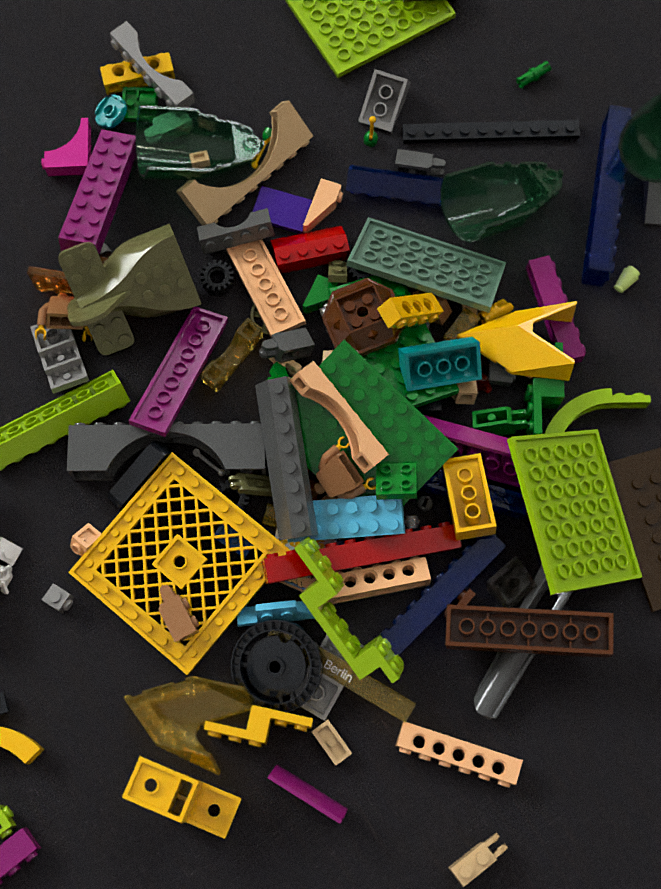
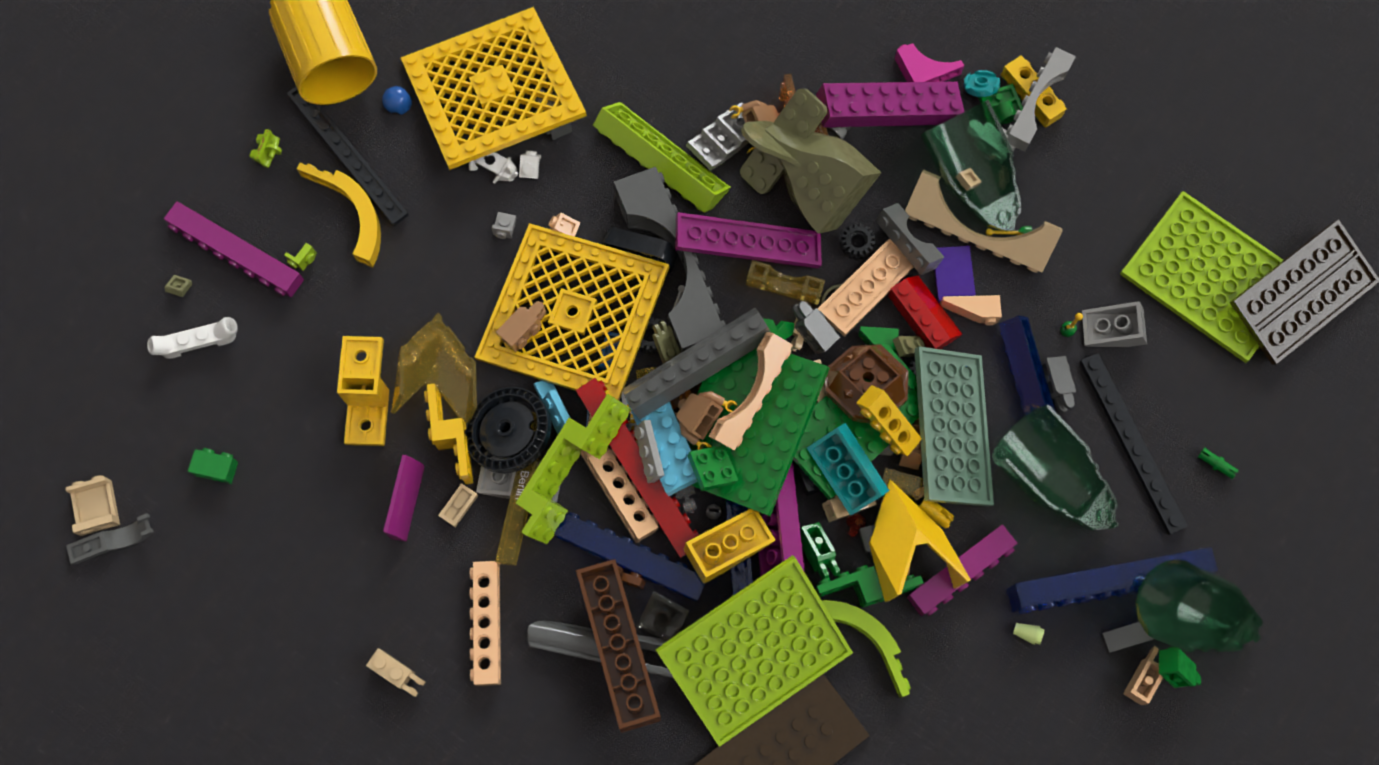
camera: 70 degrees right, 0 degrees up
(355, 535) = (649, 451): none -> light grey plate

